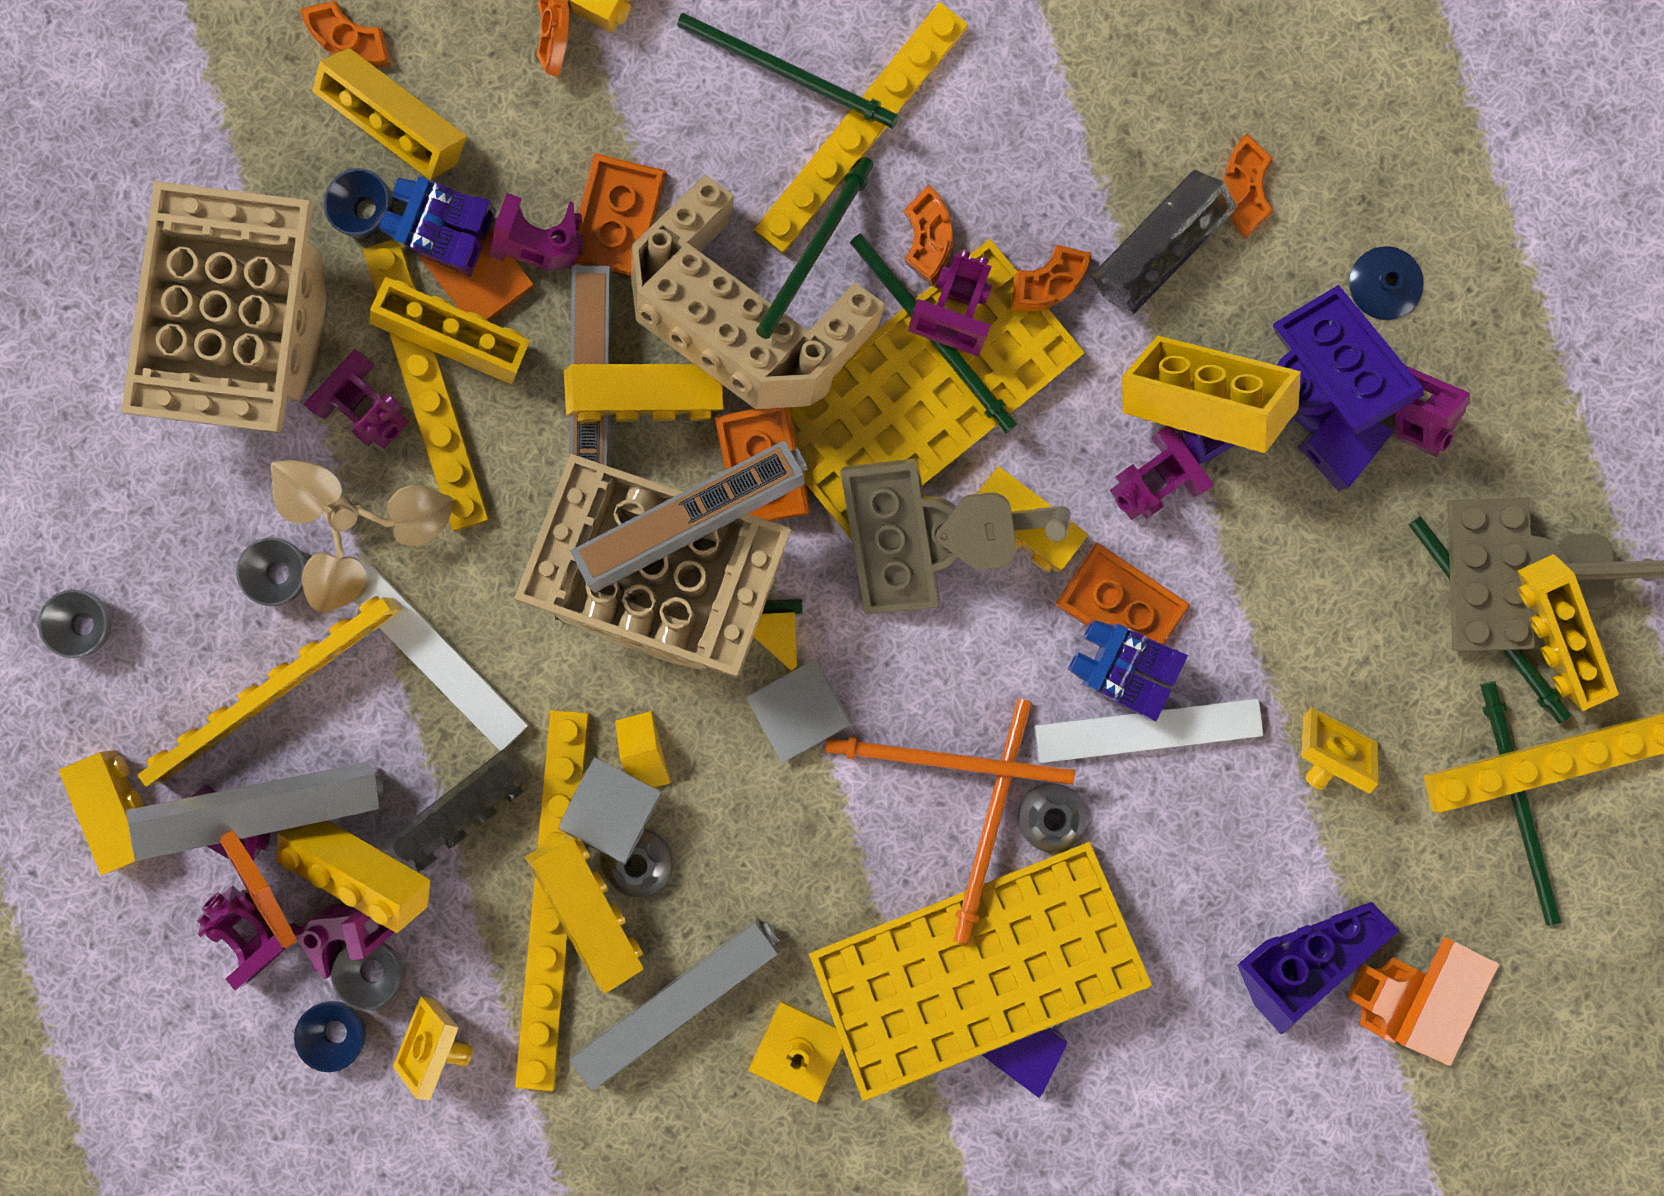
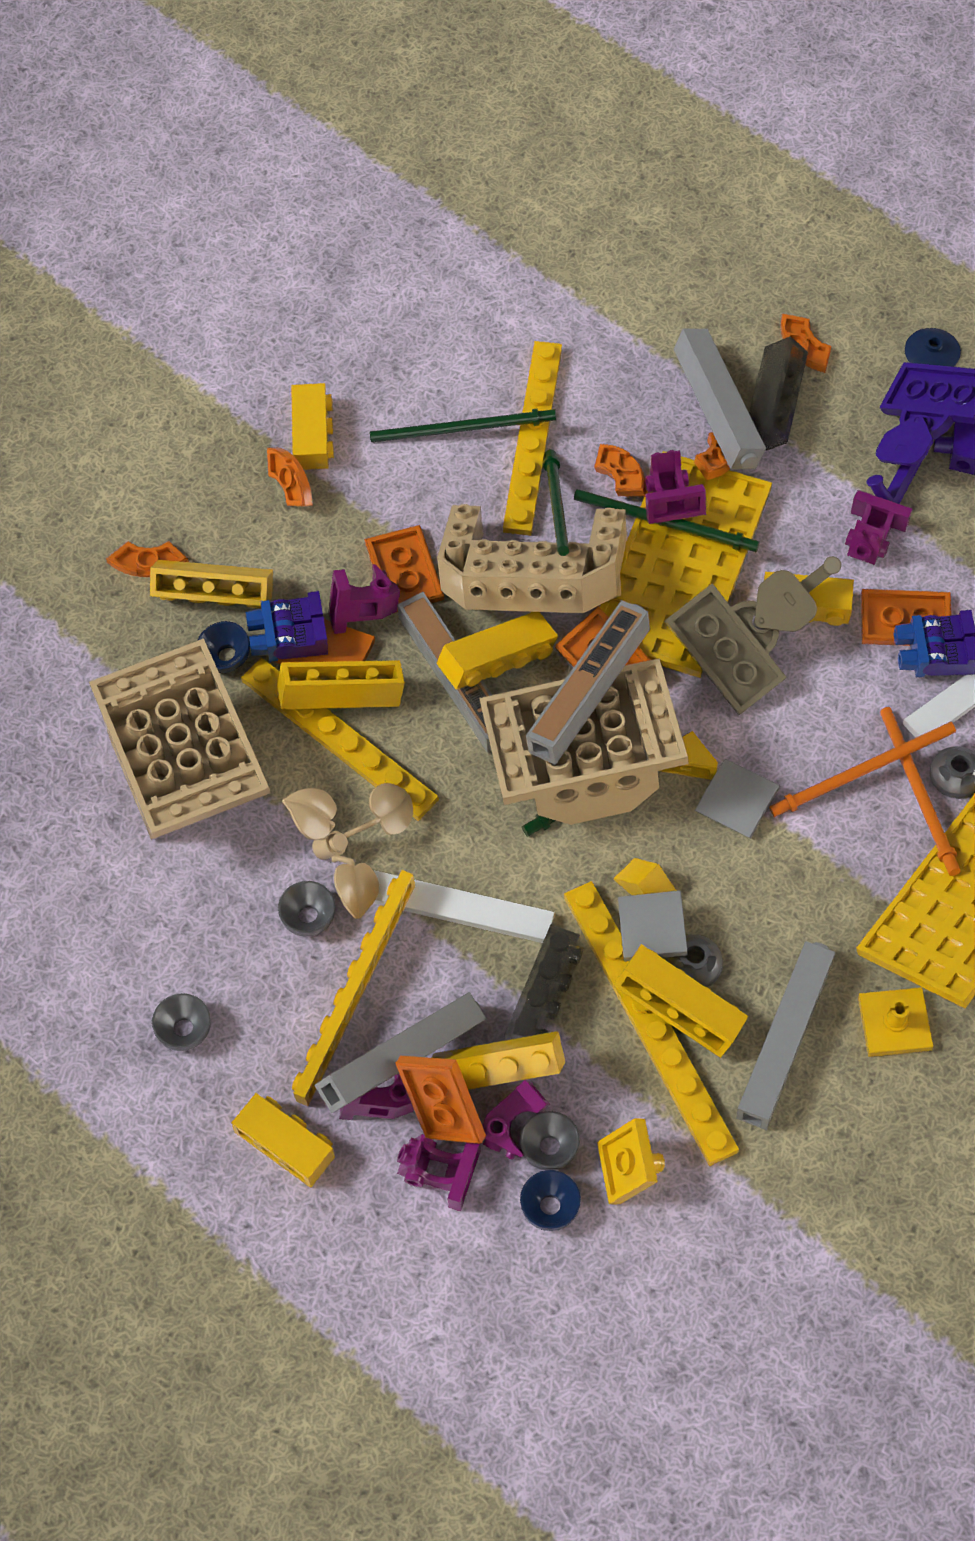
camera: 30 degrees left, 25 degrees down
(346, 390) = (286, 766): magenta tile -> none
(1093, 211) = (719, 399): none -> light grey brick
(1211, 393) = (870, 450): yellow brick -> none

